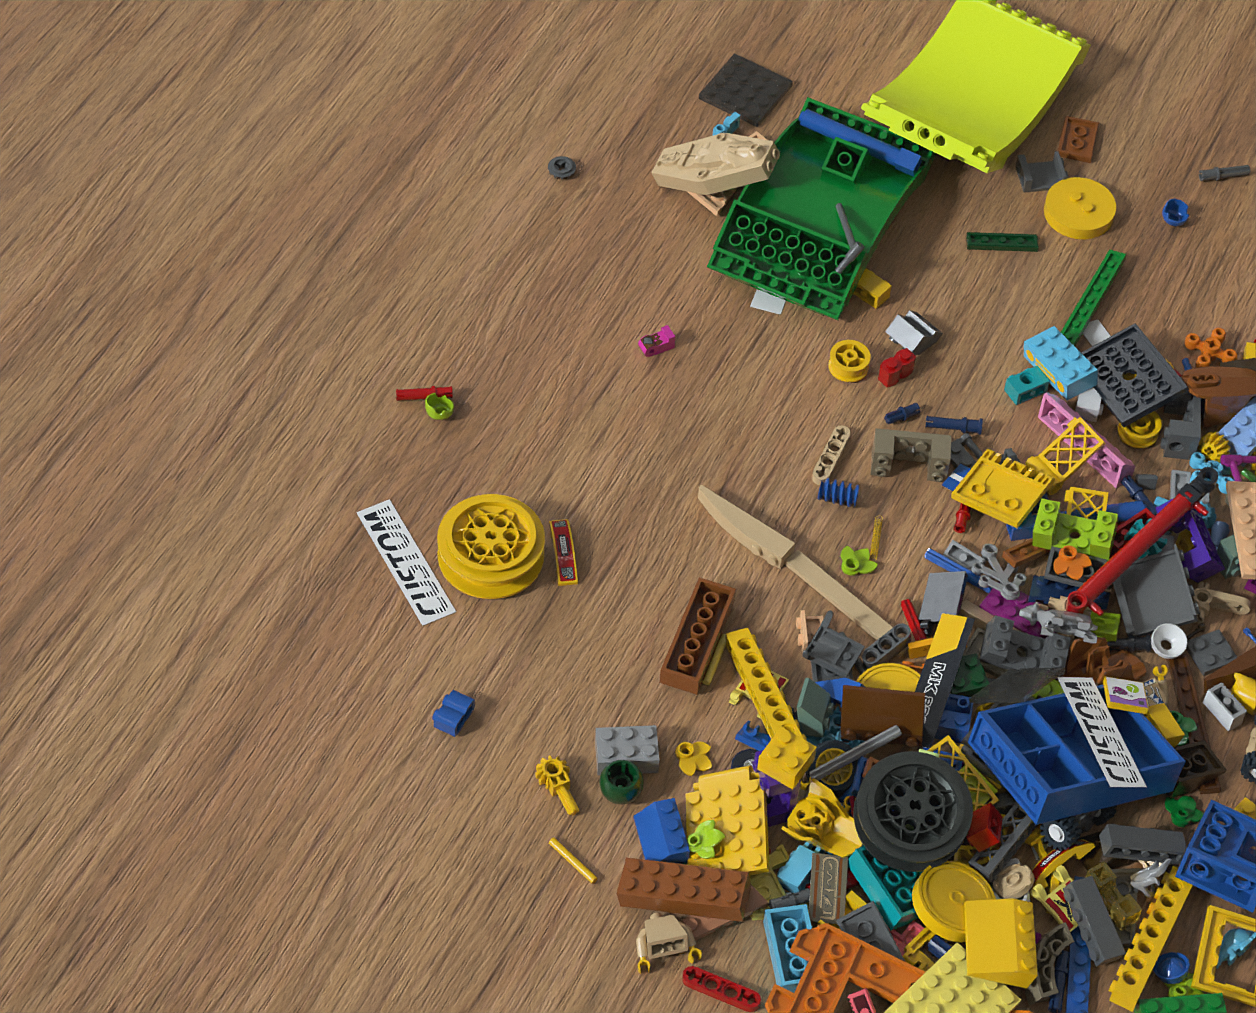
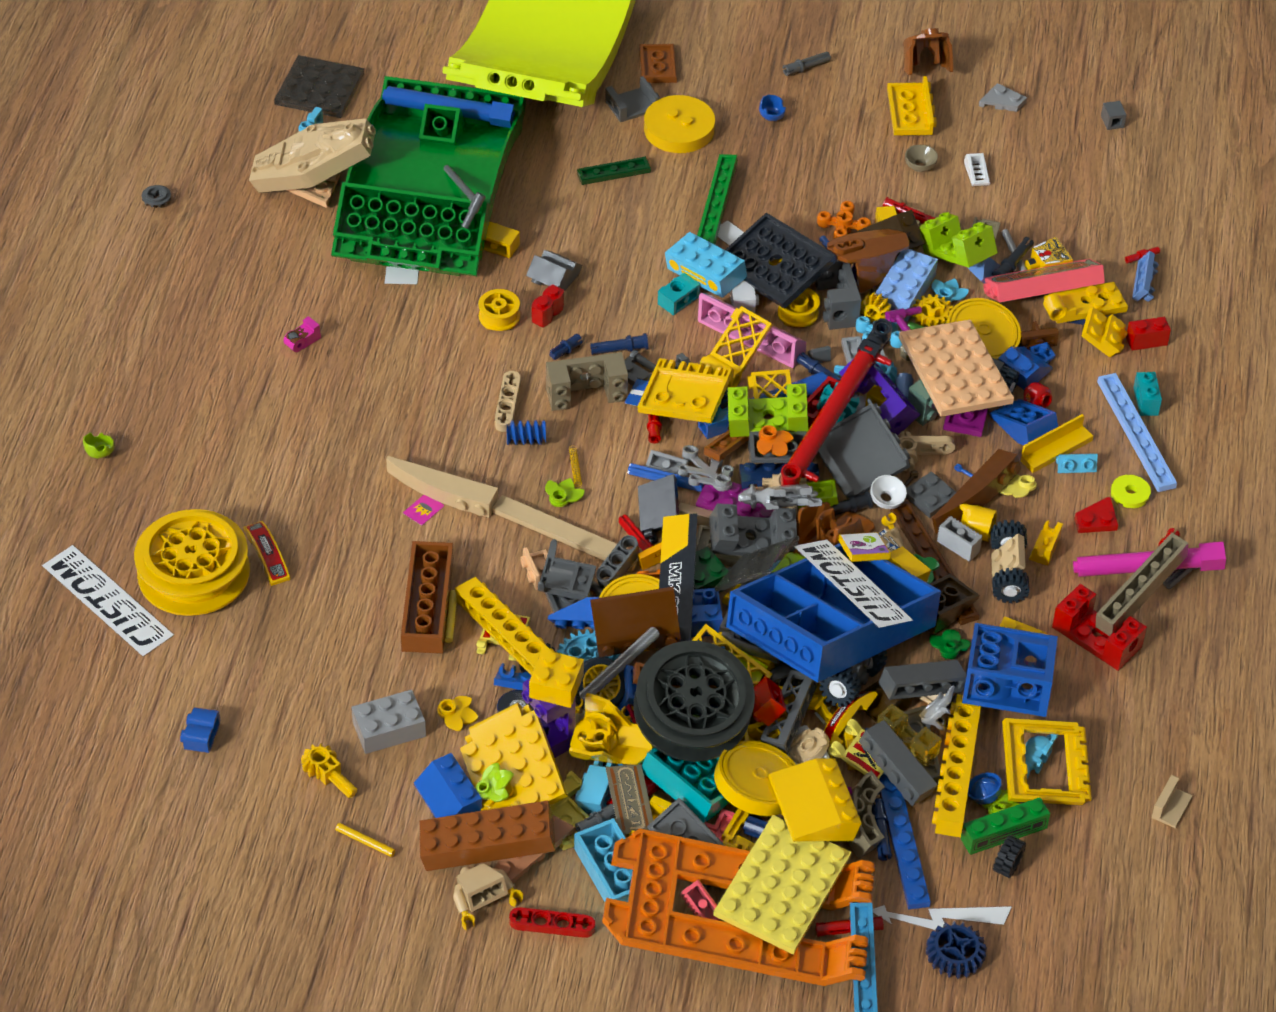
camera: 15 degrees left, 5 degrees down
(422, 393) = (77, 437): red pin -> none
(617, 775) = (392, 751): dark green wheel -> none
(720, 545) = (423, 509): none -> dark pink sticker
(814, 709) = (565, 632): sand green slope -> none

